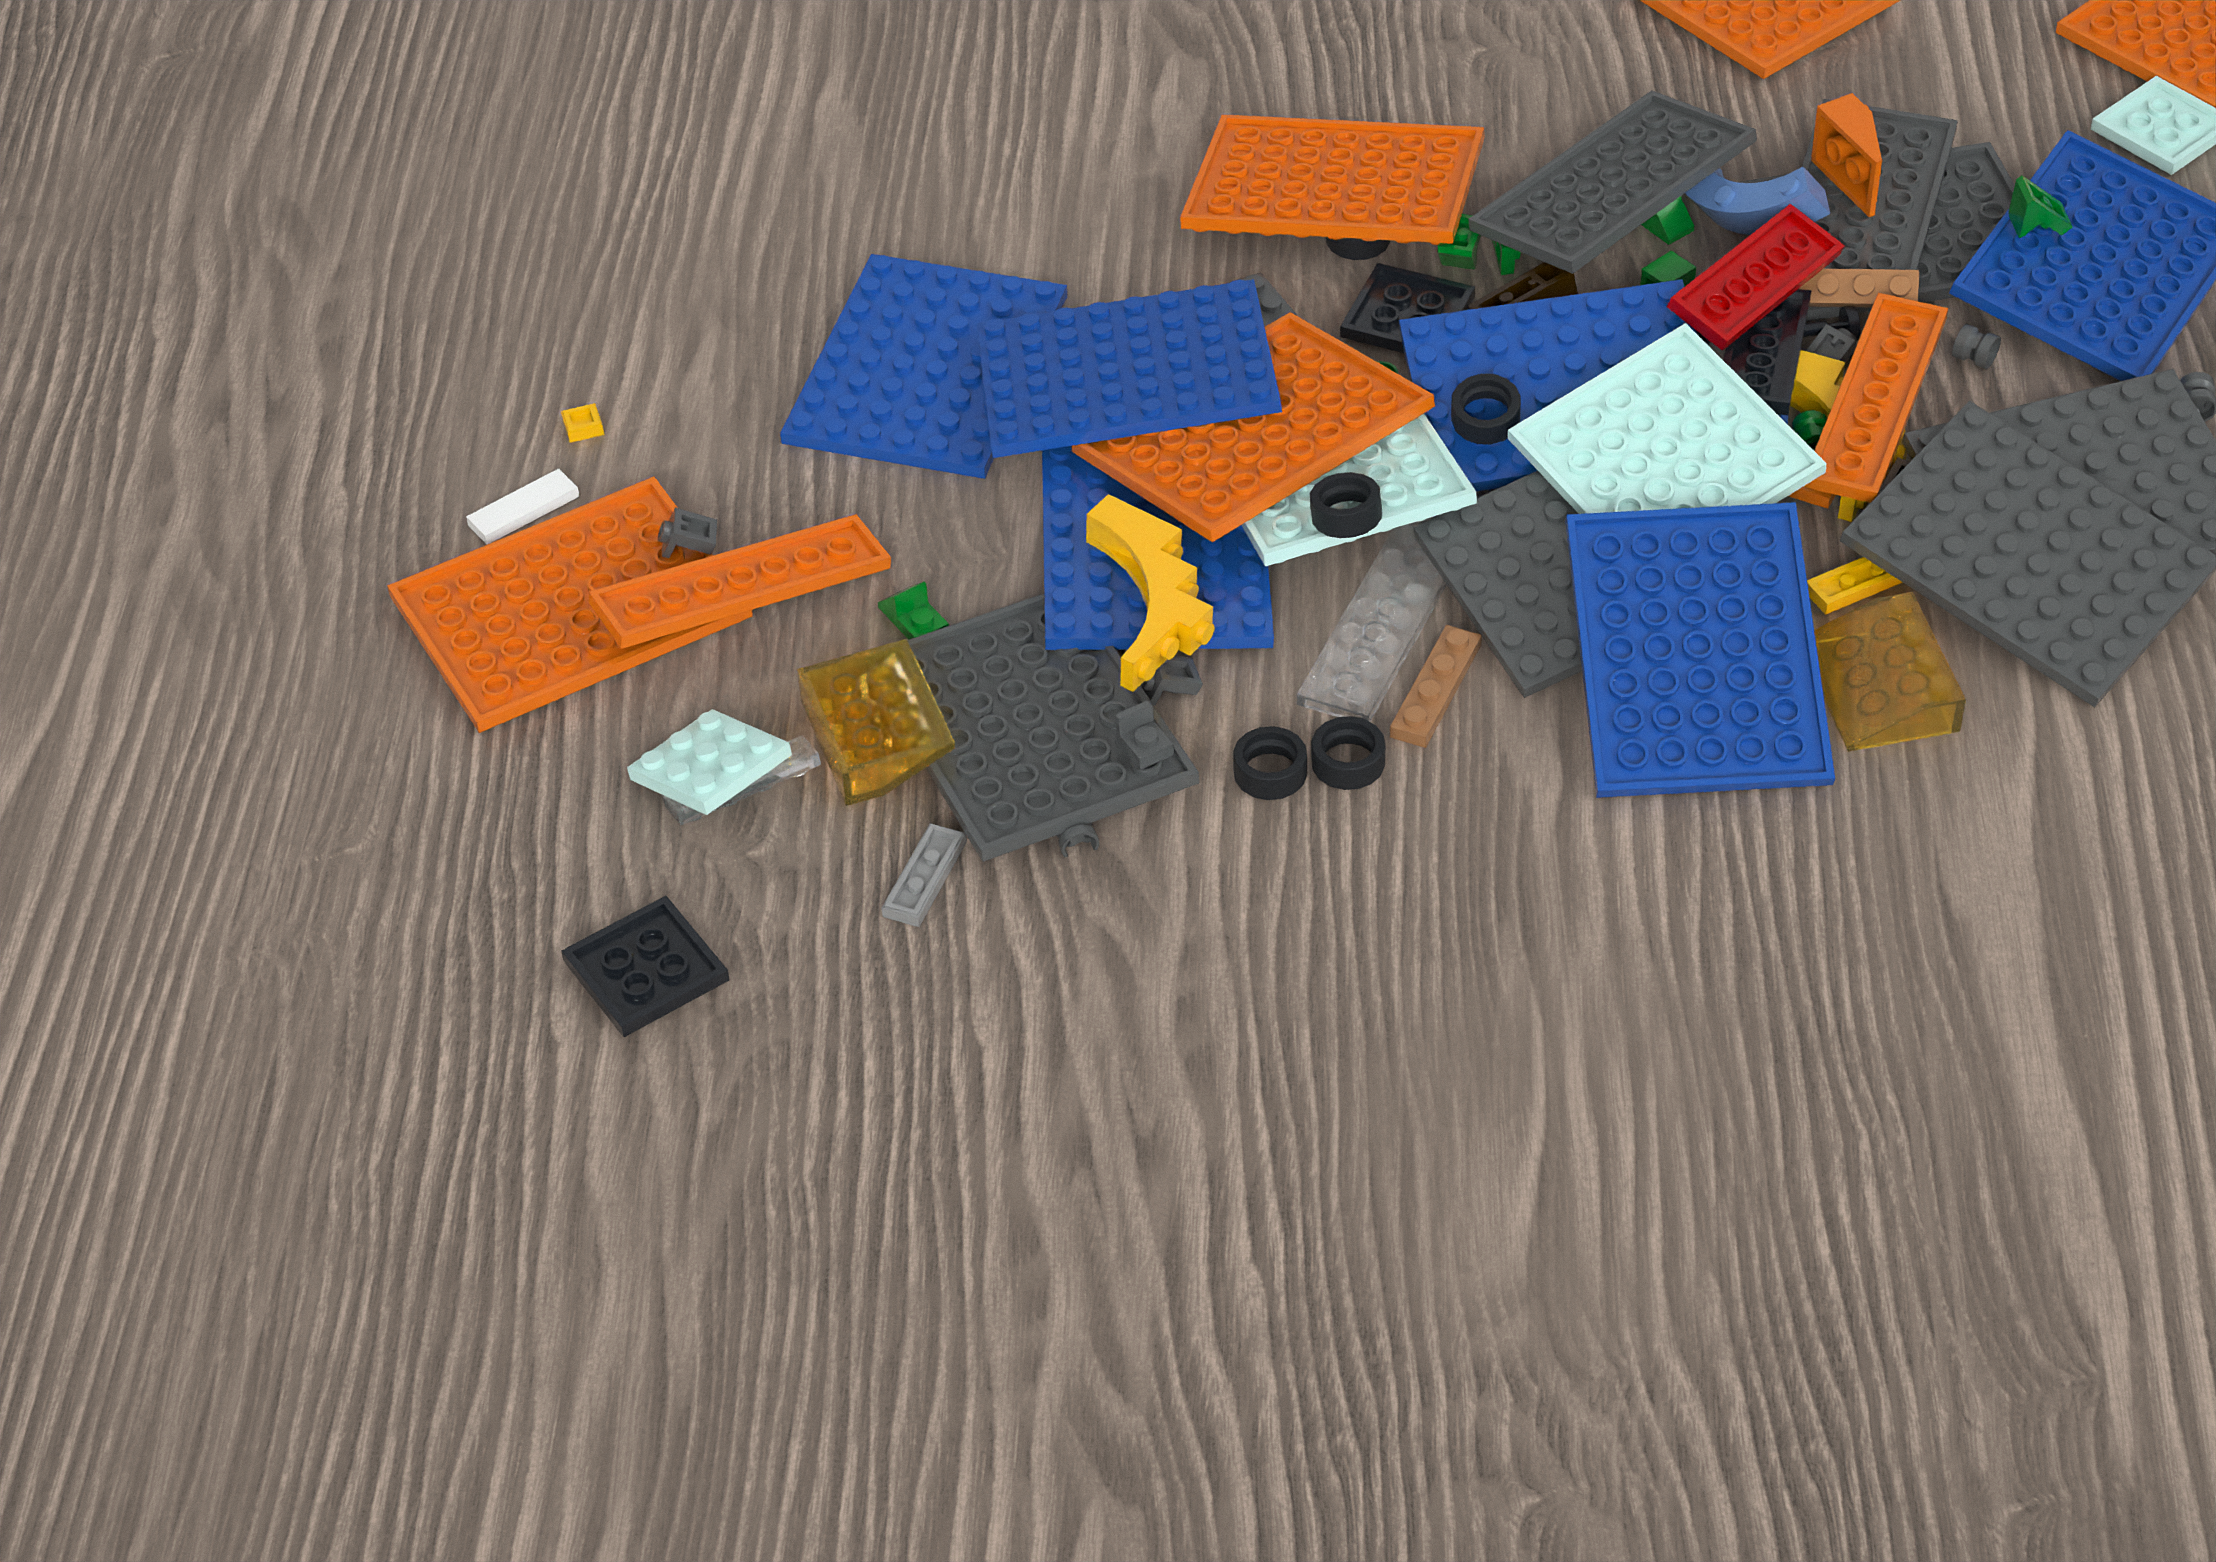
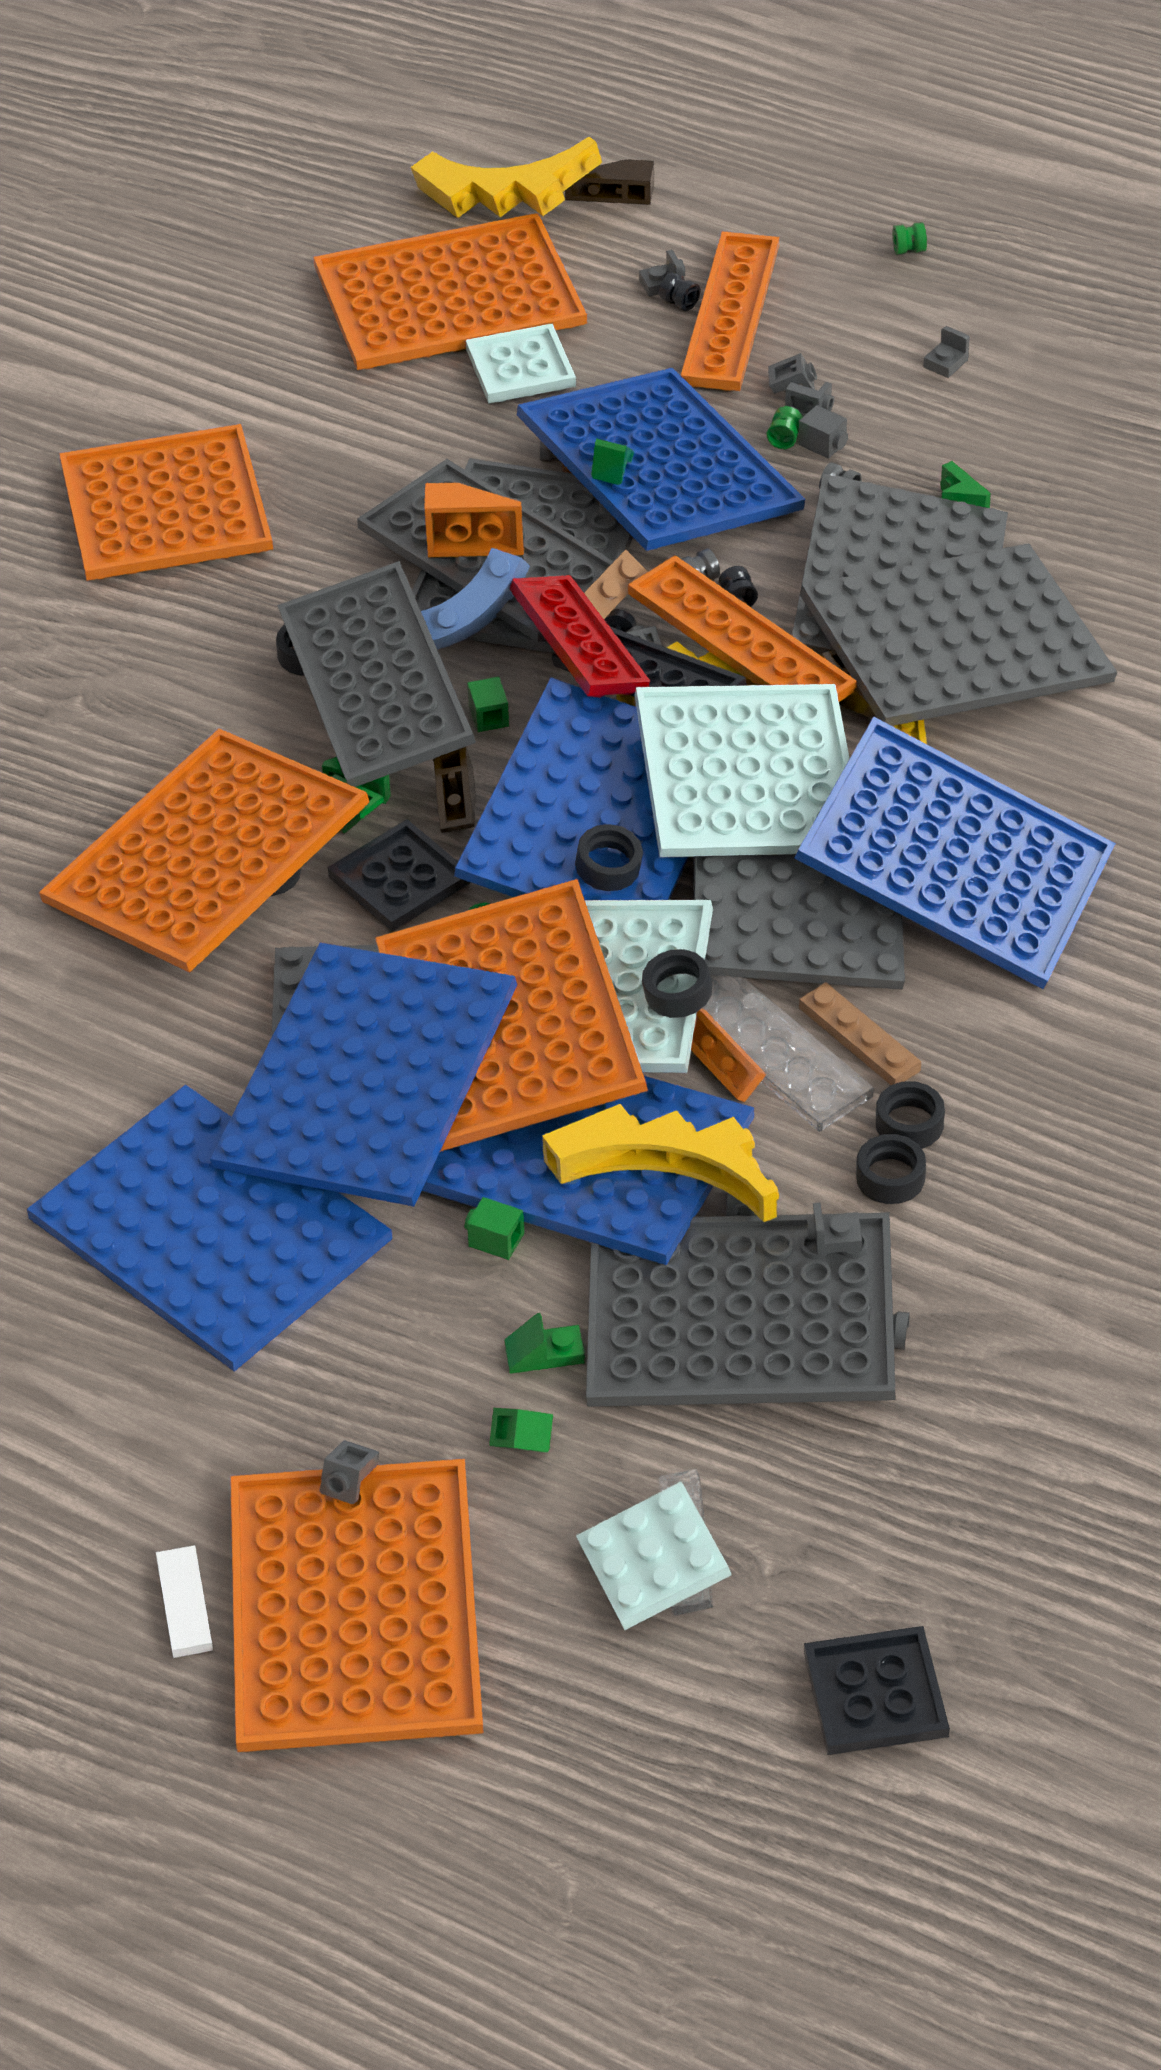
camera: 65 degrees left, 0 degrees up
(582, 422) = (93, 1516): yellow tile -> none
(738, 580) = (439, 1453): orange plate -> none
(806, 631) = (521, 1429): none -> green panel
(873, 719) = (684, 1413): clear yellow slope -> none
(924, 875) = (874, 1451): light grey tile -> none
(1023, 529) = (495, 1228): none -> green brick
(1333, 596) = (725, 1057): none -> orange plate
(1887, 675) = (1031, 758): clear yellow slope -> none
(1973, 382) = (738, 583): none -> black wheel

